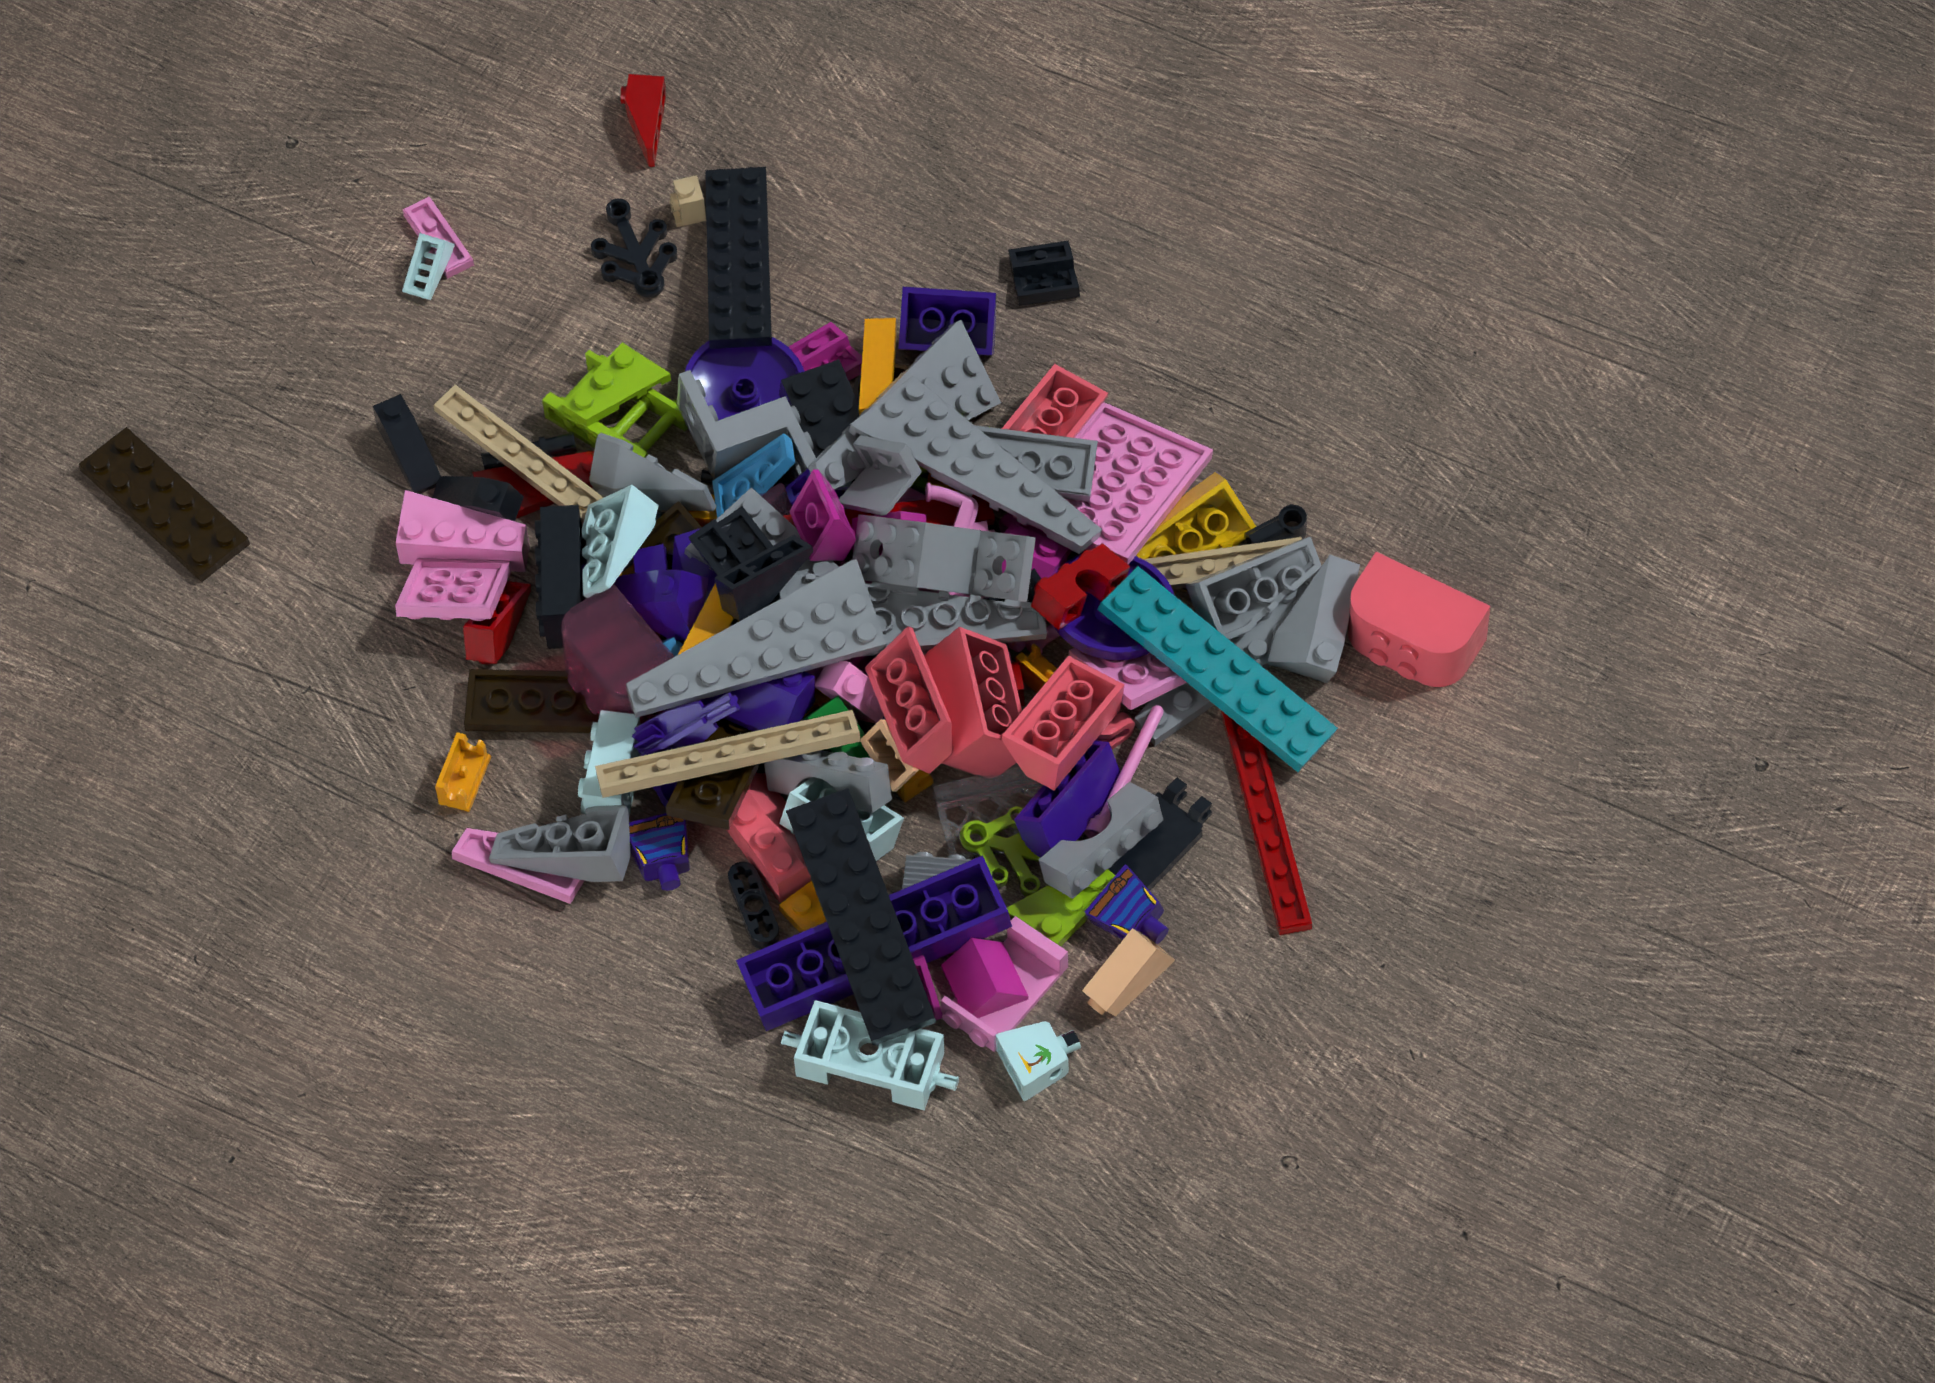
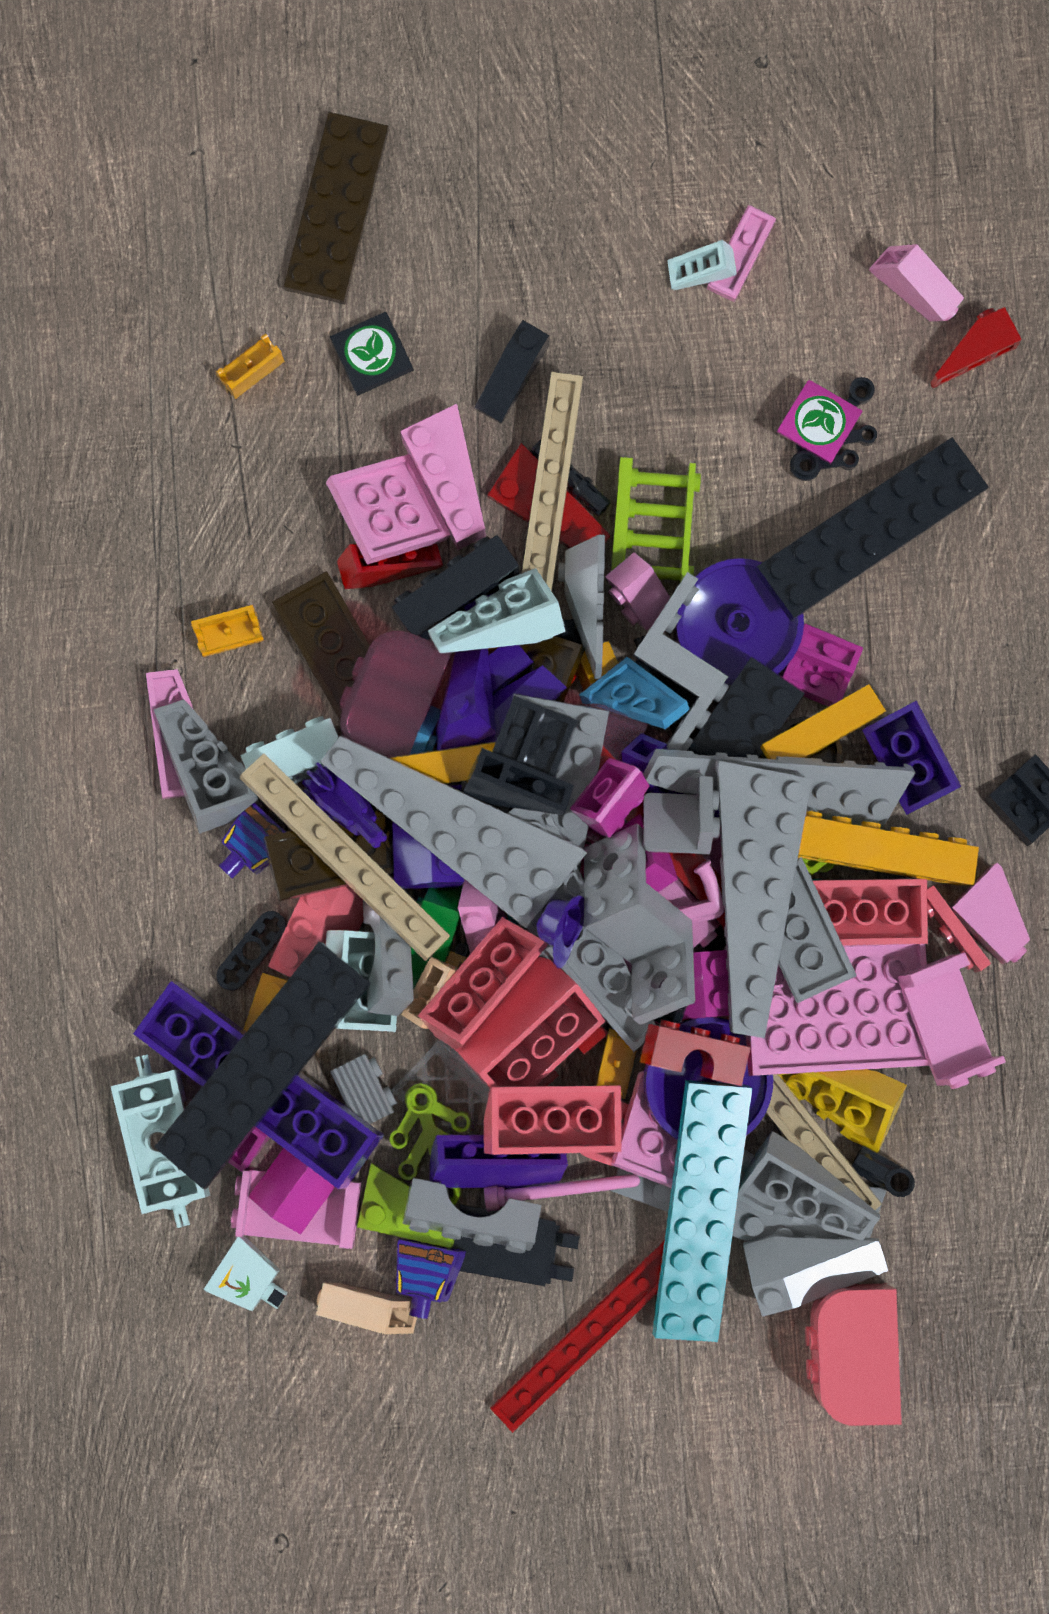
camera: 55 degrees right, 25 degrees up
(247, 636) = (250, 366): none -> light orange hinge
(309, 541) = (371, 353): none -> slope
(480, 494) = (491, 468): black slope -> none
(559, 124) = (917, 281): none -> bright pink slope
(615, 381) = (671, 509): lime wing -> none
(622, 250) = (819, 421): none -> slope
(665, 440) = (638, 590): none -> bright pink brick
(687, 202) = (907, 444): tan brick -> none
(900, 612) = (561, 926): none -> dark purple piece
(1015, 375) = (888, 851): none -> light orange brick
(1119, 345) = (993, 916): none -> bright pink slope
(1119, 376) = (954, 931): none -> coral plate
(1182, 421) = (947, 1022): none -> bright pink panel

